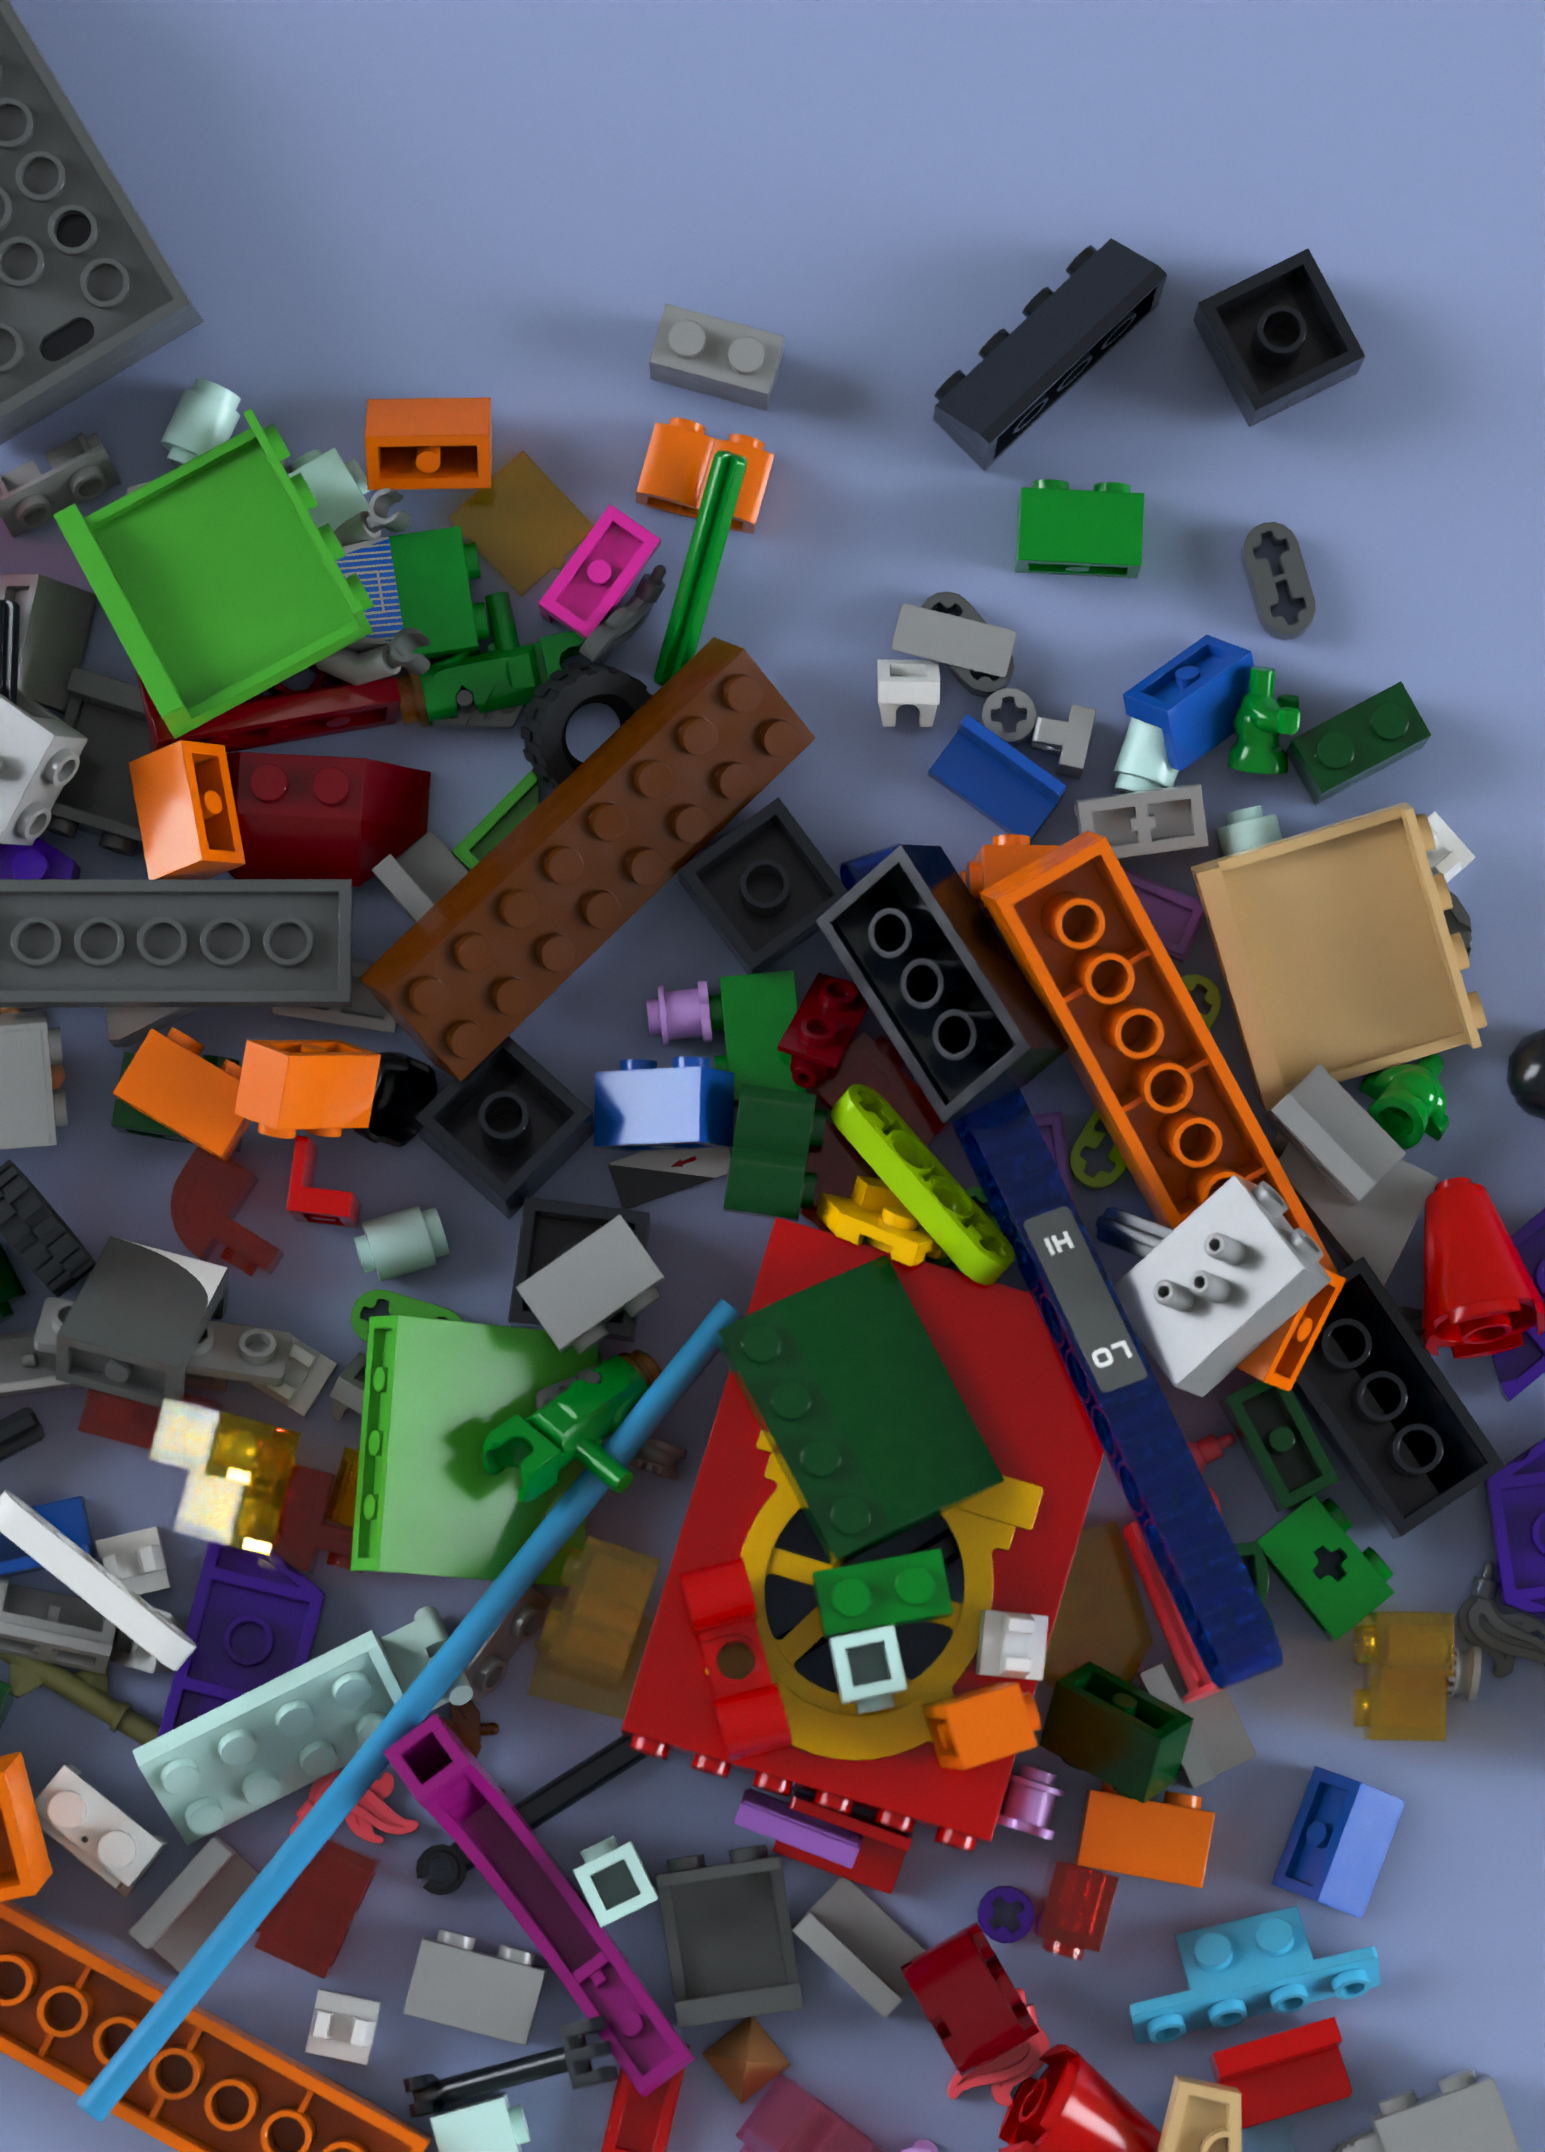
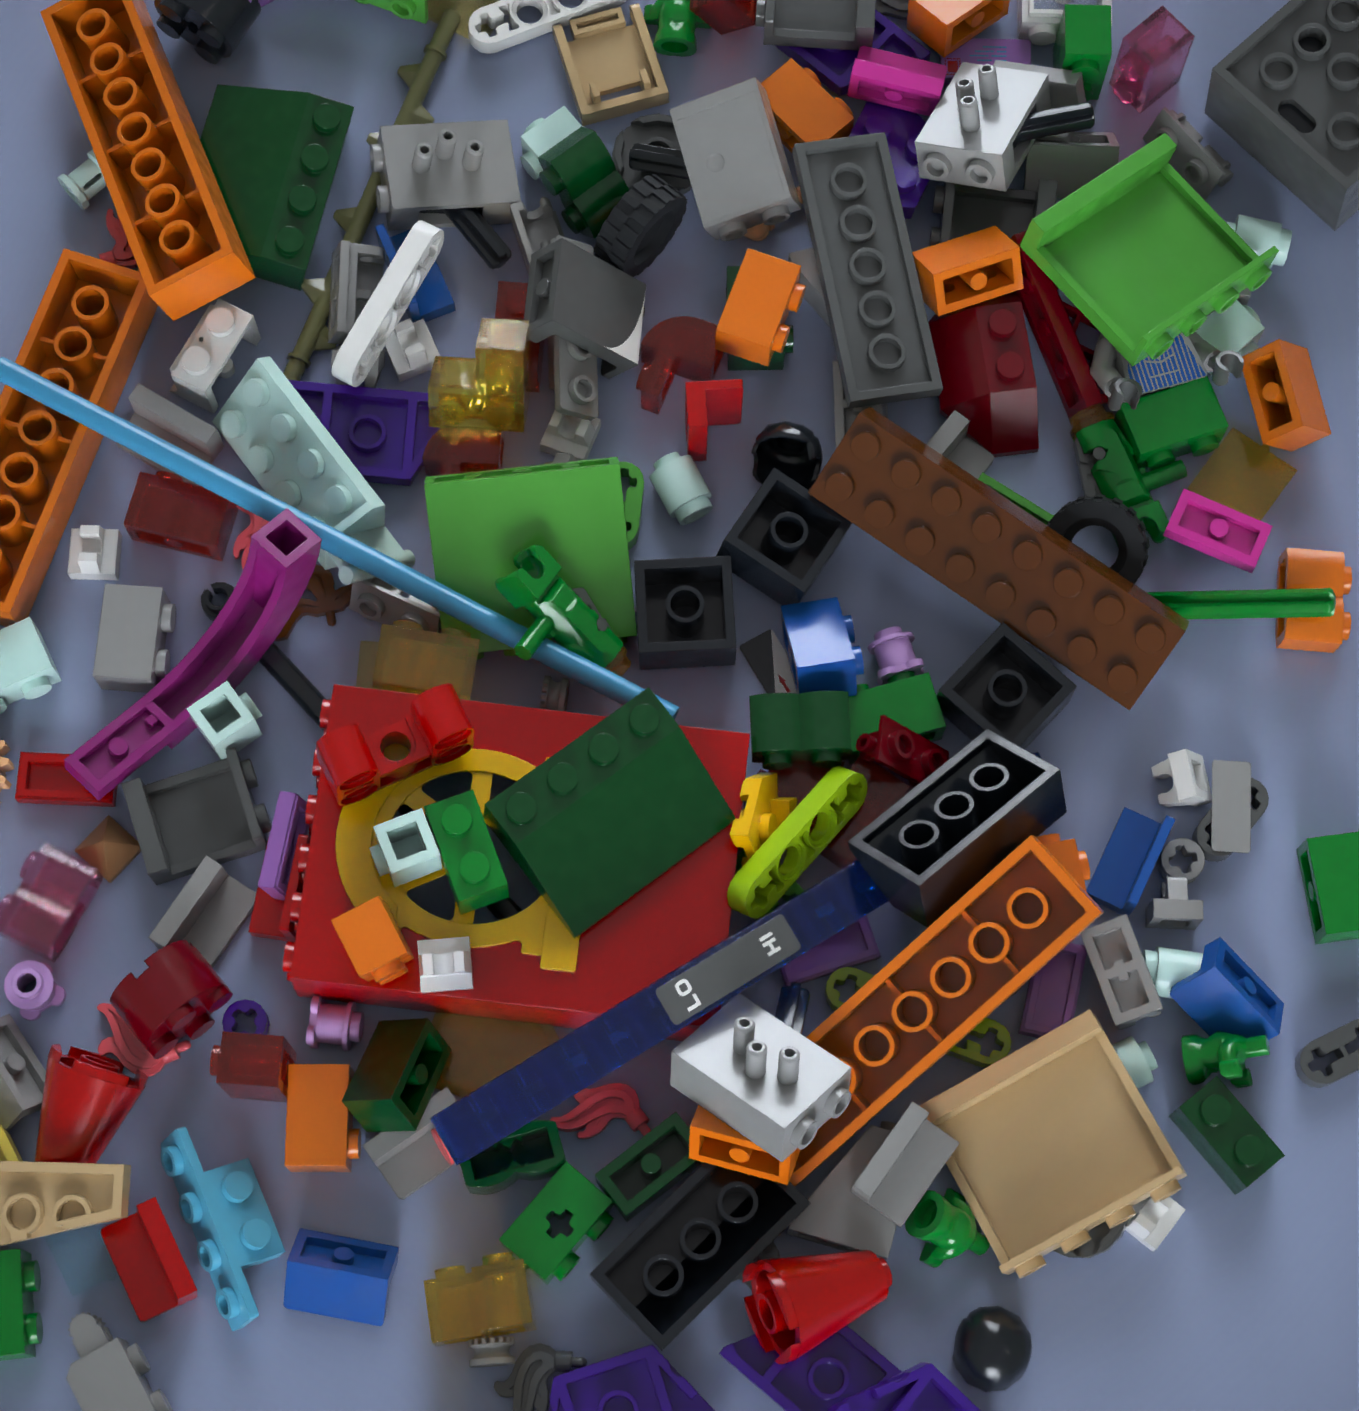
camera: 80 degrees right, 10 degrees down
(306, 1086) = (780, 379): orange brick -> none
(574, 2057) = (86, 706): black hinge -> none
(593, 1286) = (670, 609): light grey brick -> none
(626, 619) = (1183, 558): dark grey piece -> none

